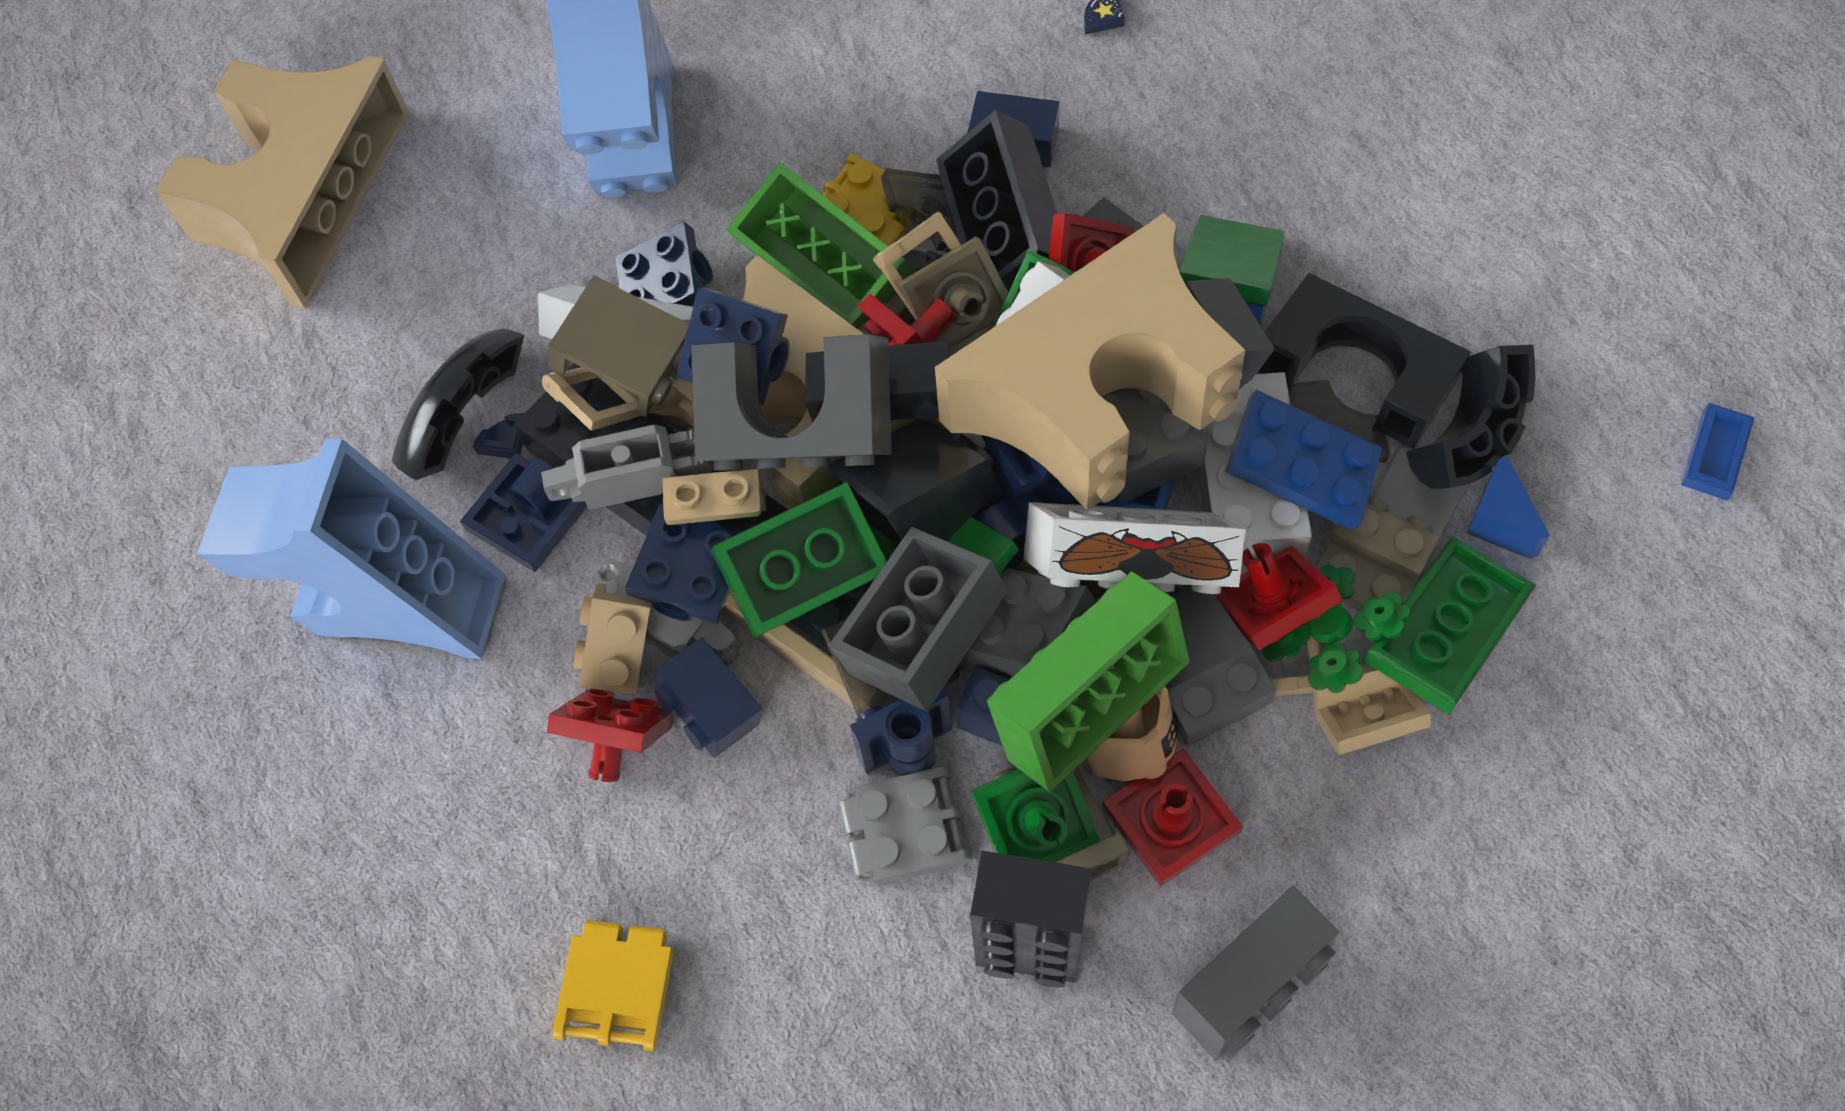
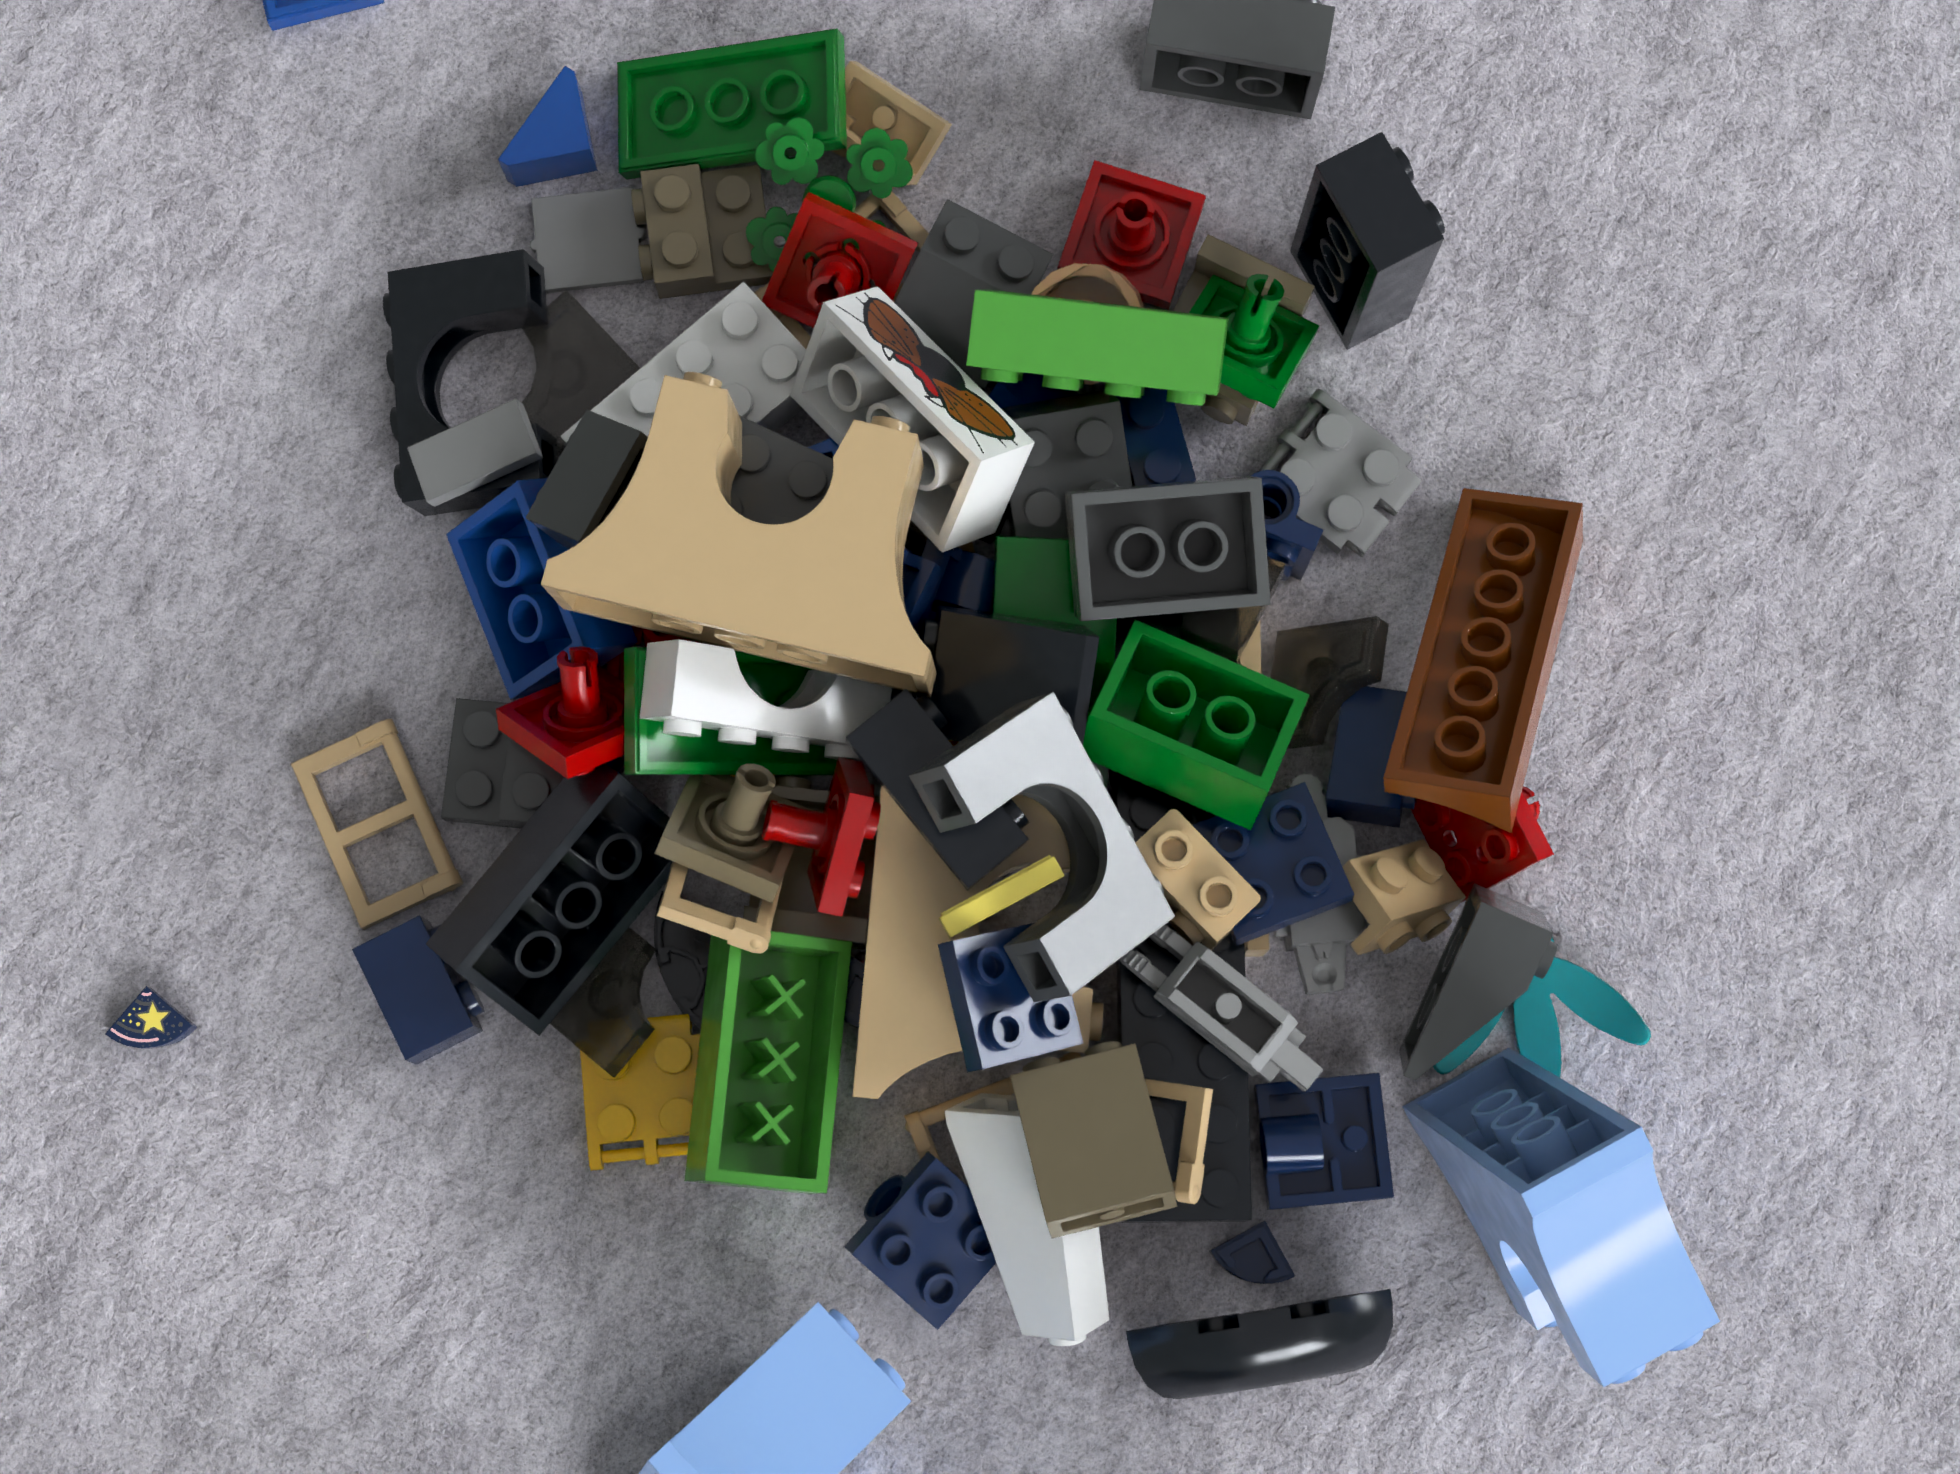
camera: 135 degrees left, 15 degrees up
(506, 701) = (1537, 1023): none -> teal plant
(521, 642) = (1481, 972): none -> dark grey slope
(615, 985) = (1701, 617): yellow plate -> none
(702, 800) = (1487, 654): none -> dark orange arch
(781, 699) = (1330, 666): none -> clear smoke tile
(789, 381) = (1001, 896): none -> light yellow tile
(1132, 147) = (337, 841): none -> tan window
(1234, 251) = (450, 584): green tile -> none
(1304, 460) = (661, 321): blue plate -> none
(1306, 314) = (475, 452): none -> light grey tile
(1486, 420) = (464, 219): black brick -> none

